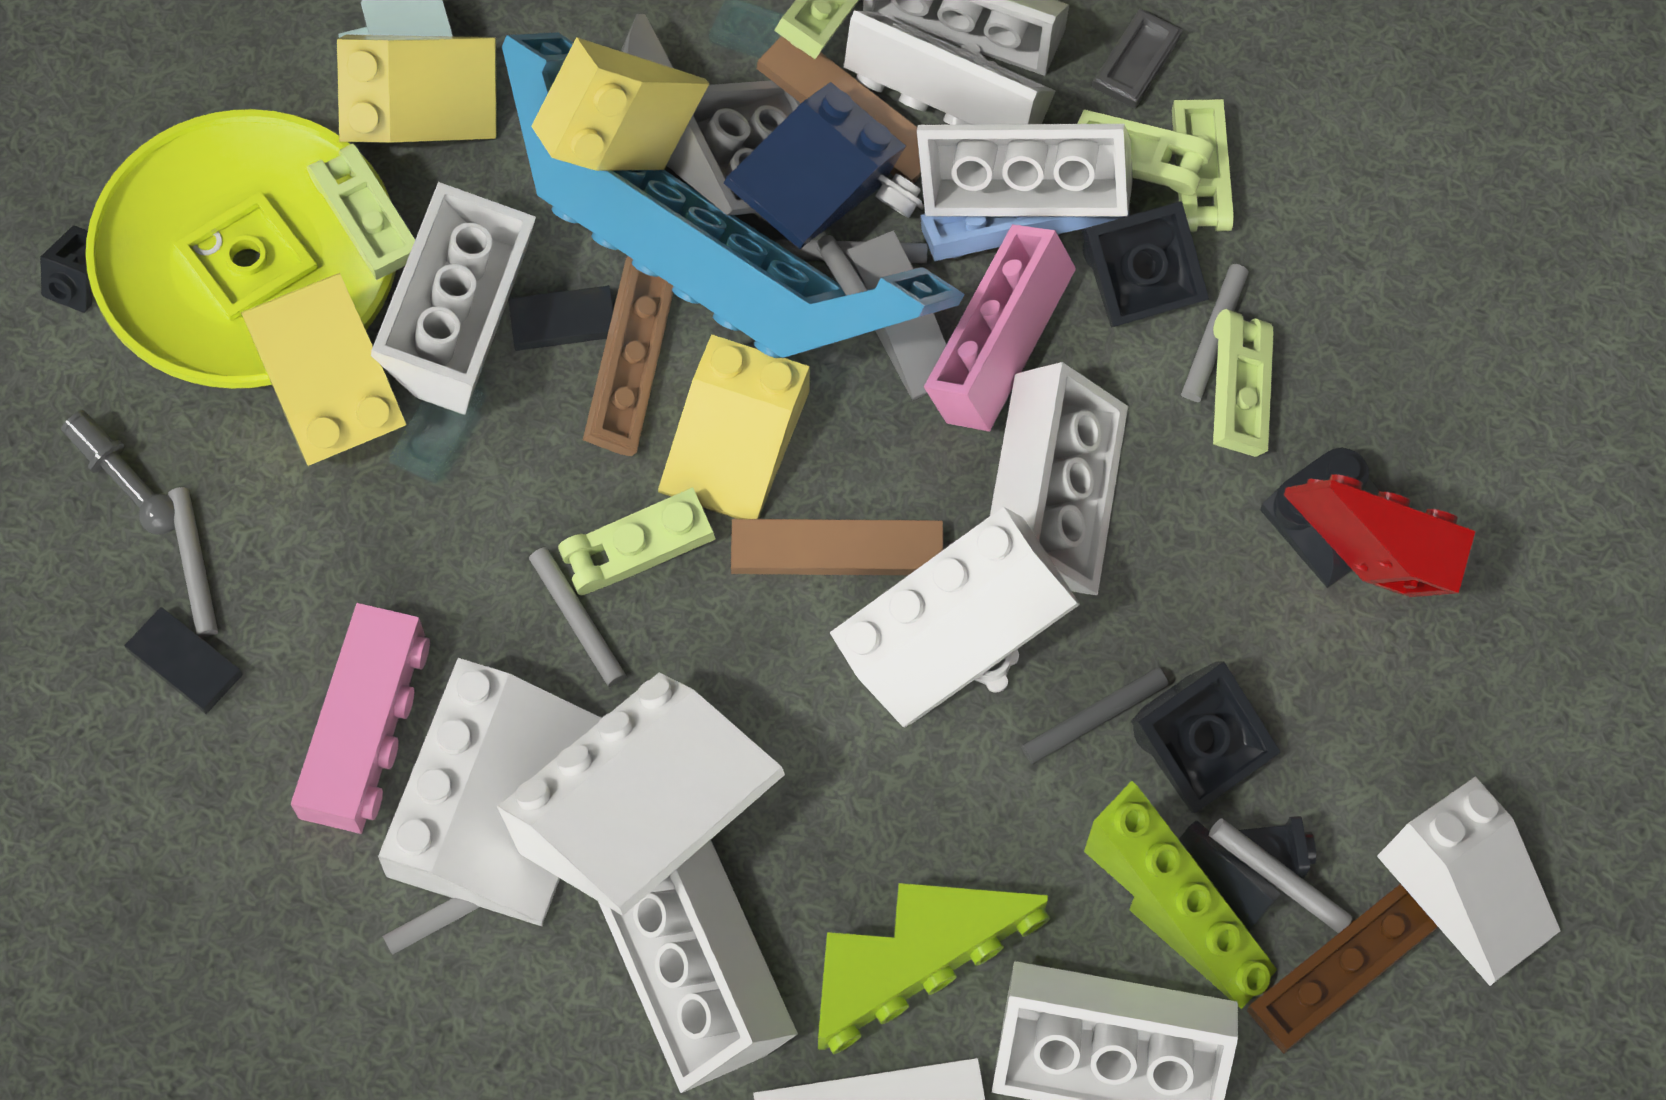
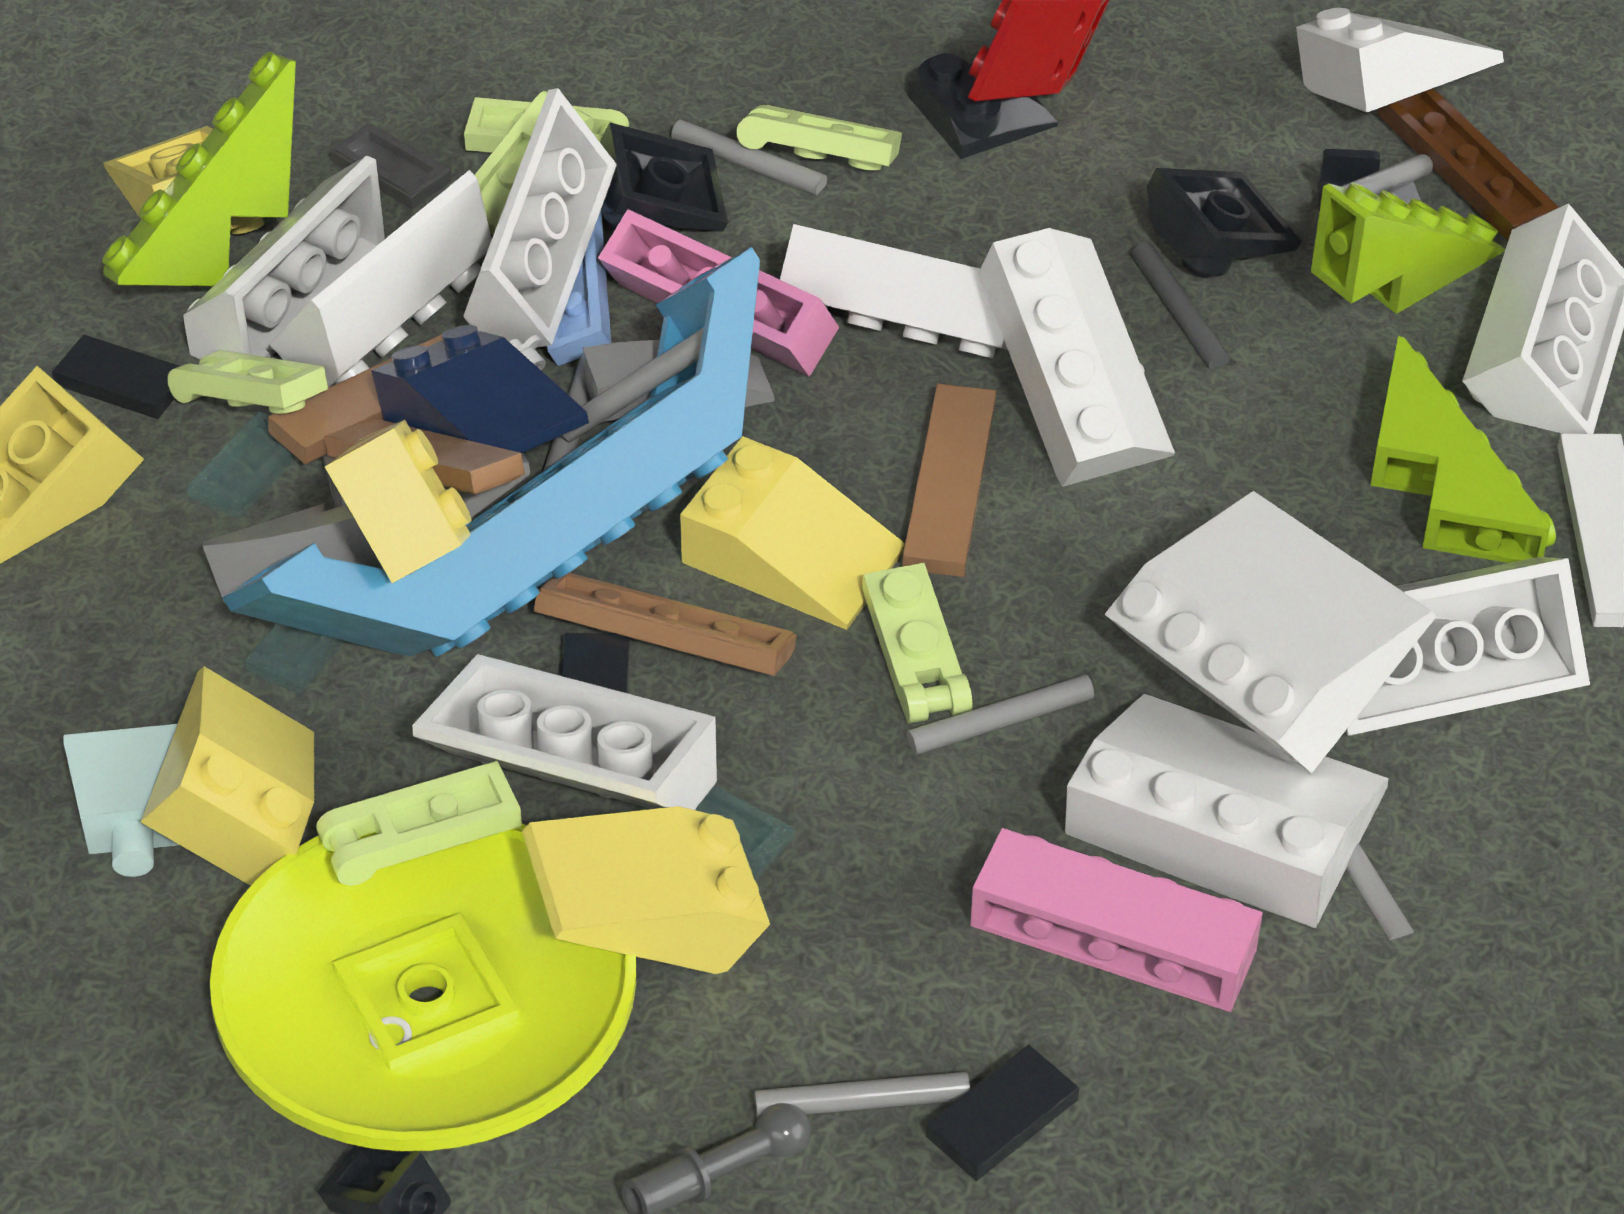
camera: 80 degrees left, 20 degrees down
(730, 137) = (461, 462): none -> medium nougat tile

